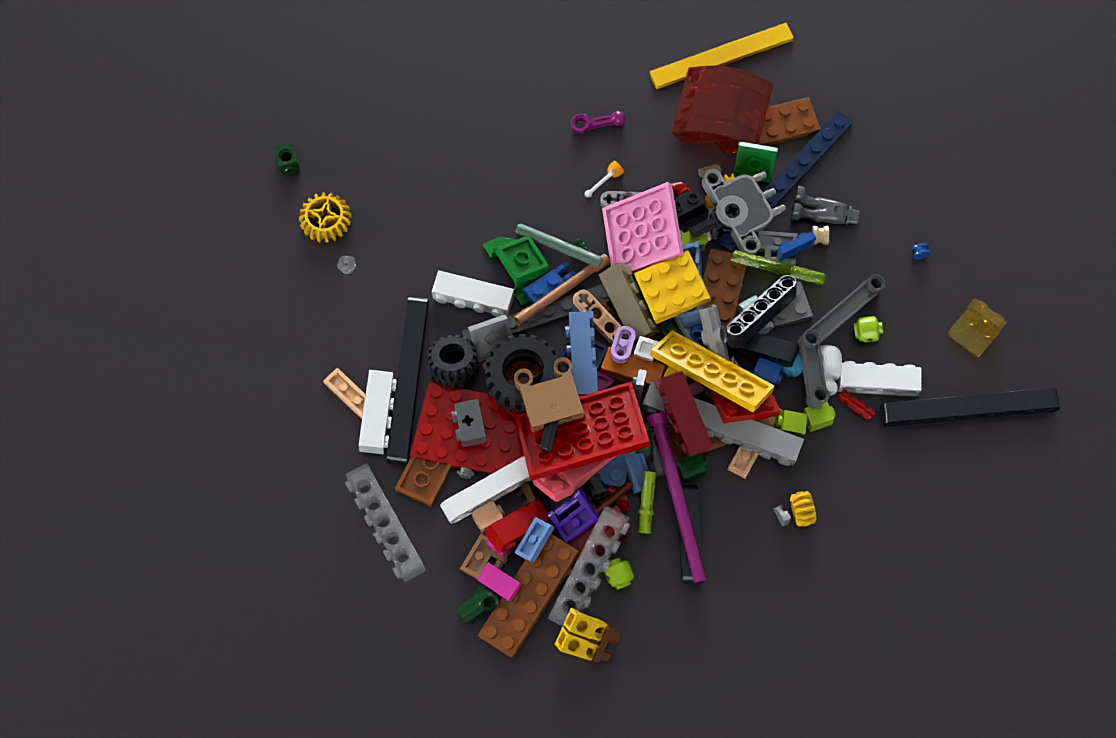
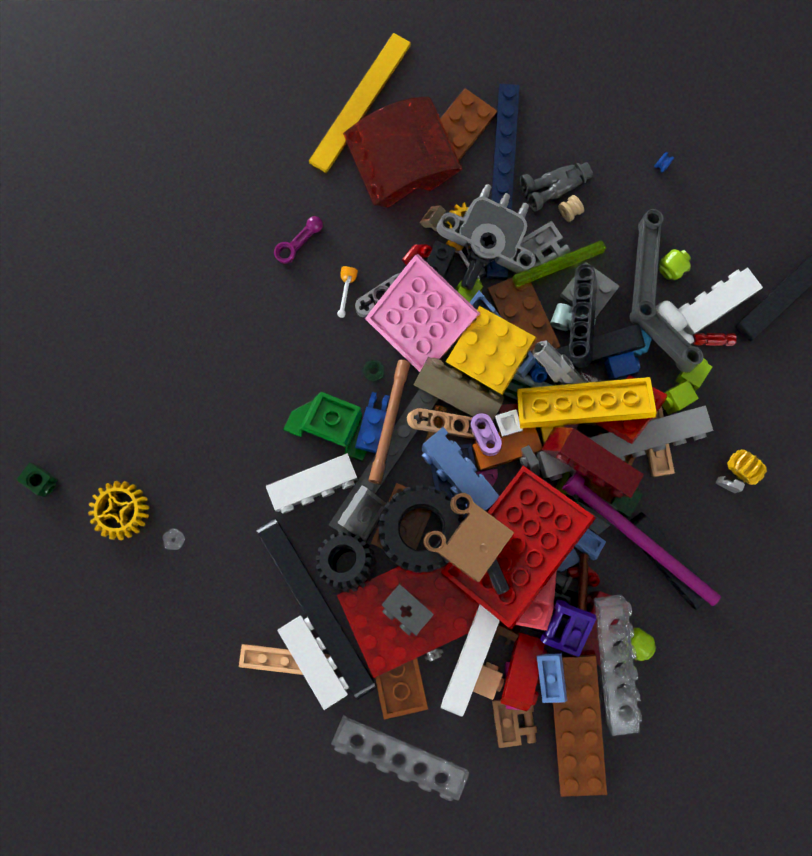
camera: 40 degrees left, 10 degrees up
(478, 604) = (543, 763): dark green piece -> none
(499, 582) = (546, 736): dark pink tile -> none
(559, 245) = (355, 381): sand green axle -> none
(586, 637) = (659, 728): yellow hips -> none
(646, 507) = (616, 568): lime pin -> none
(755, 159) = (467, 180): green tile -> none
(791, 248) = (557, 240): blue plate -> none
(977, 328) = (761, 197): clear yellow bracket -> none

